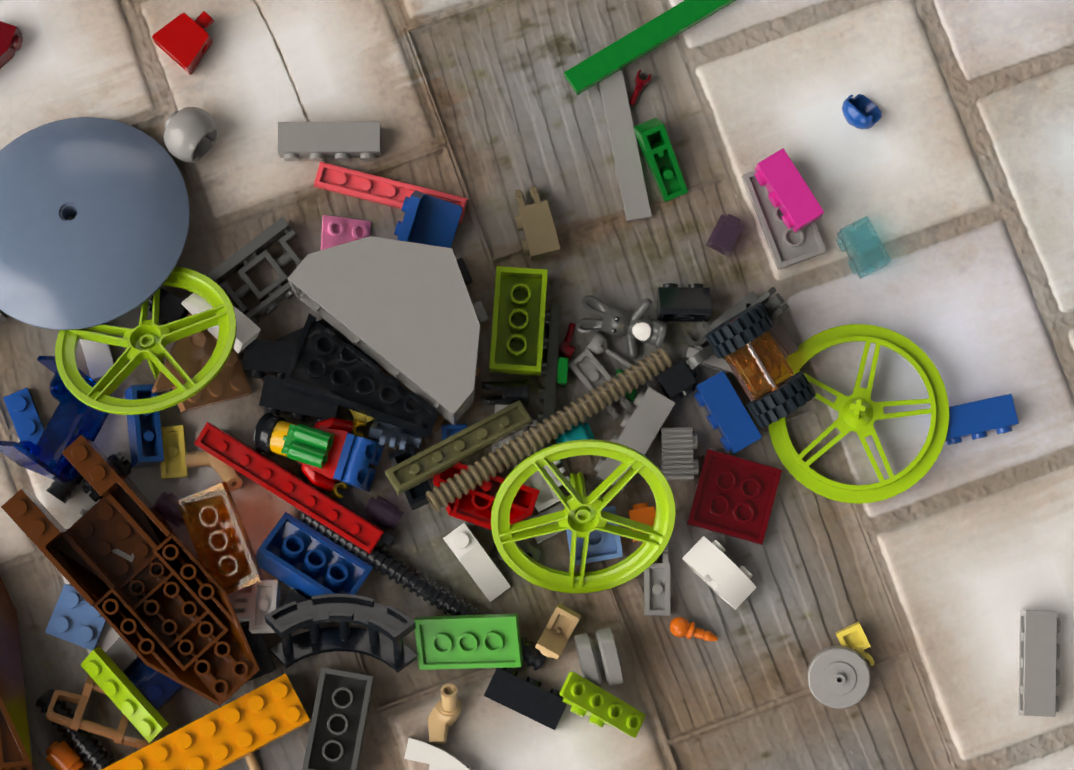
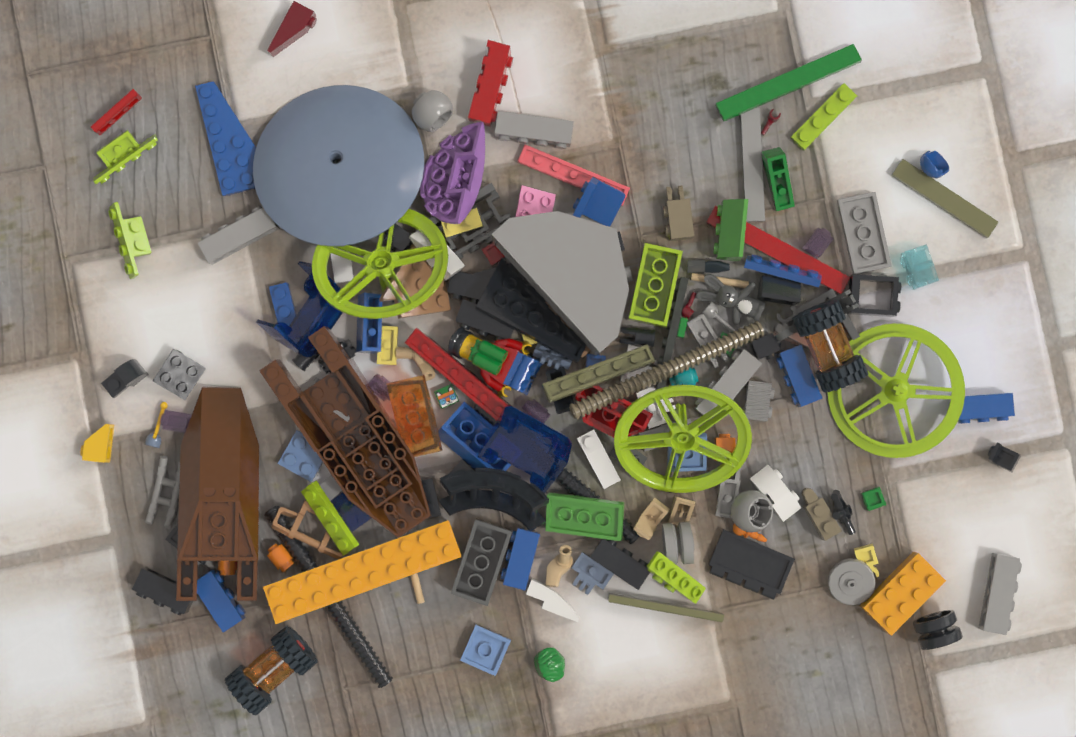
camera: 20 degrees right, 5 degrees up
(185, 40) = (437, 38): red torso -> none
(232, 213) = (455, 175): none -> medium lavender brick
(249, 274) = (470, 222): none -> light yellow plate
(258, 604) = (435, 467): white hinge -> none
(261, 509) = (446, 396): none -> tile
(264, 88) = (490, 83): none -> red wedge
(297, 311) = (492, 253): none -> red tile
(377, 558) = (527, 446): none -> clear blue windscreen
(390, 712) = (520, 558): none -> blue brick
(488, 718) = (590, 573): none -> sand blue hinge
(589, 286) = (701, 266): none -> piece
(596, 749) = (665, 607): none -> olive tile
(597, 614) = (681, 510): none -> tan slope
(607, 233) = (731, 229): none -> bright green slope
(625, 303) = (726, 281): none -> tan bar
(673, 251) = (788, 254): none -> red tile
(674, 276) = (789, 272): none -> blue plate
(690, 600) = (751, 511): none -> light grey wheel
(700, 671) = (750, 562): none -> black hinge
(708, 71) = (823, 116): none -> lime plate
(734, 497) = (794, 438): dark red plate -> none
(782, 286) = (854, 286): none -> black window
(782, 593) = (820, 515): none -> dark tan hinge
(788, 191) = (870, 217): dark pink brick -> none
(812, 584) = (842, 511): none -> black piece
(851, 562) = (873, 498): none -> green tile
(882, 154) = (945, 198): none -> olive tile
(909, 682) = (902, 593): none -> light orange brick
(964, 726) = (937, 629): none -> black wheel
(1013, 480) = (1003, 457): none -> black bracket

